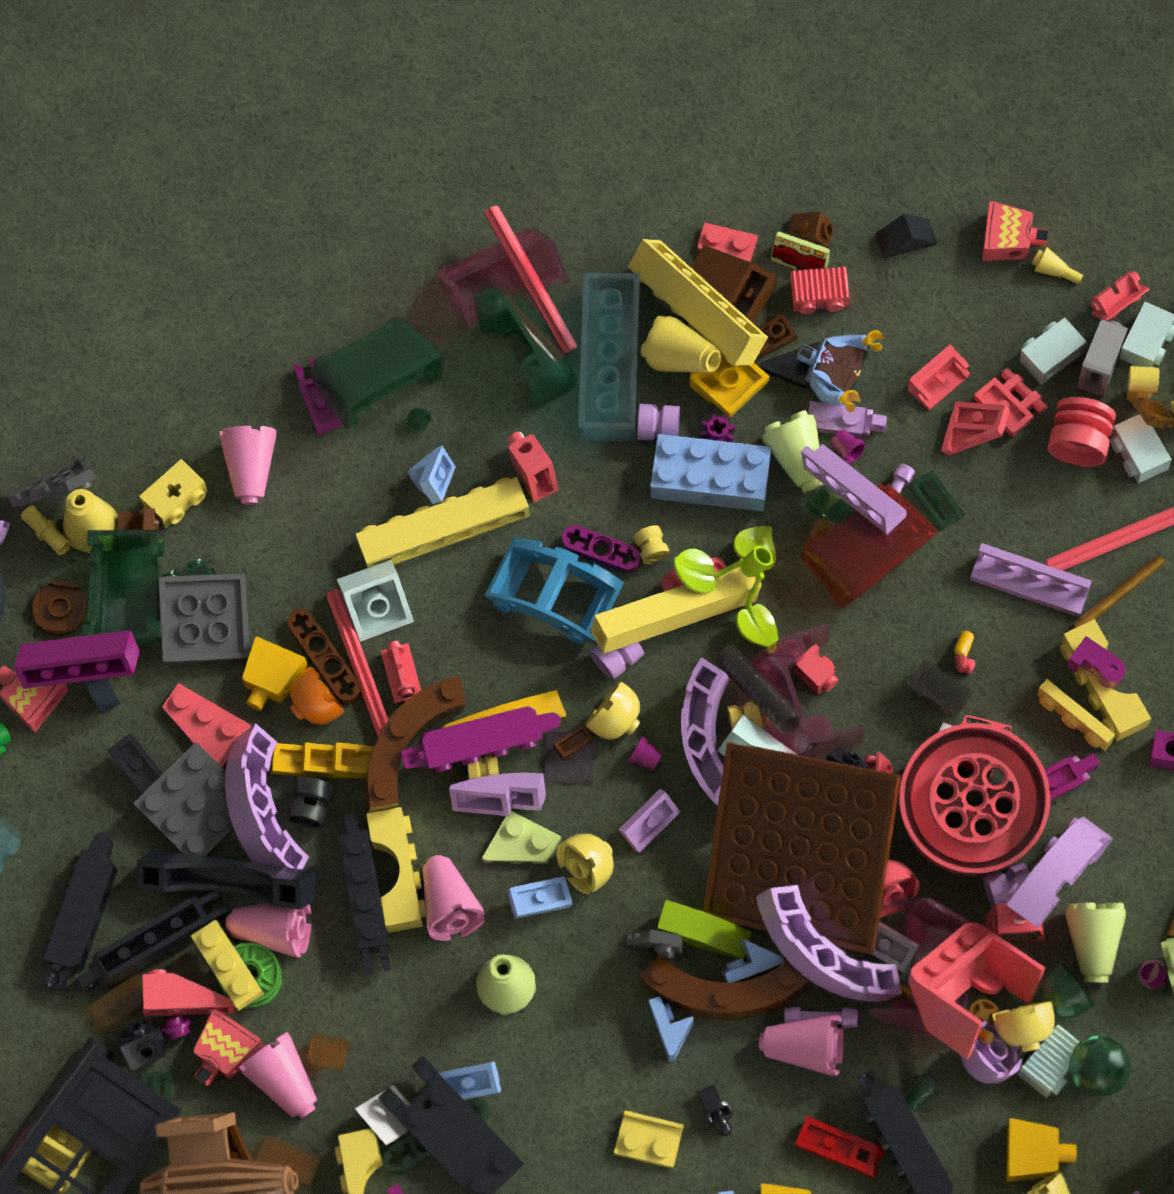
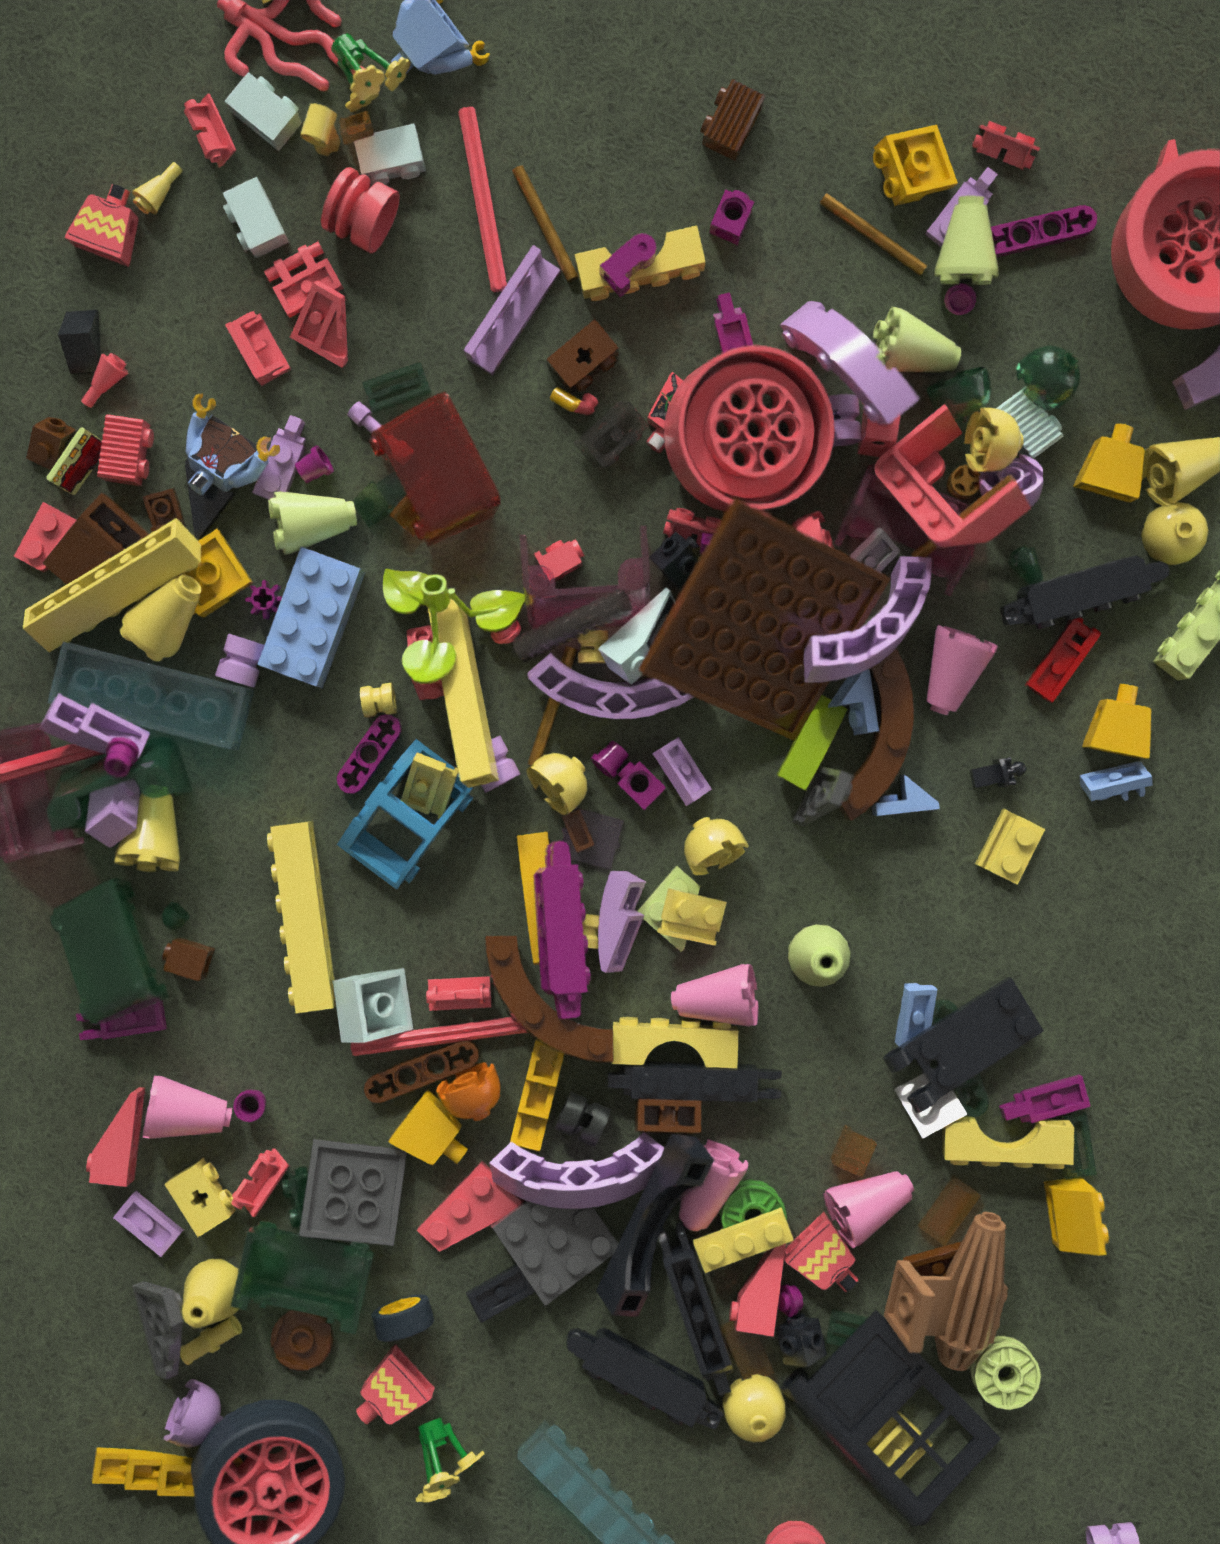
camera: 80 degrees left, 20 degrees up
(68, 1017) = (754, 1408): none -> light yellow cylinder
(77, 659) = (378, 1344): magenta brick -> none
(140, 520) = (228, 1243): reddish brown bracket -> none
(141, 456) = (148, 1223): none -> lavender plate
(185, 537) = (266, 1174): none -> coral hinge
(204, 416) = (116, 1153): none -> coral slope
(264, 508) = (243, 1111): none -> magenta piece
(330, 875) = (668, 1116): none -> reddish brown brick
(383, 437) = (187, 959): none -> reddish brown brick
(433, 474) = (245, 914): light blue slope -> none
(486, 382) = (154, 839): none -> light yellow cone
(501, 344) = (113, 812): none -> lavender brick
(516, 856) = (691, 916): none -> light yellow plate
(532, 465) = (258, 807): coral torso -> none
(539, 897) = (739, 902): light blue plate -> none
(552, 337) = (120, 756): none -> magenta piece
(569, 313) = (89, 726): none -> lavender slope
(584, 600) = (429, 785): none -> light yellow plate
(628, 798) = (654, 787): none -> magenta brick
(678, 696) = (549, 714): none -> pearl gold bar
(738, 640) = (507, 635): none -> coral plate
(848, 1016) = (920, 672): lavender bar -> none
(853, 488) = (374, 468): lavender fence -> none
(883, 262) = (107, 374): none -> coral cone
(997, 638) = (589, 341): none -> reddish brown brick
(1074, 715) = (671, 304): light yellow plate -> none
(1102, 357) = (277, 165): light grey slope -> none

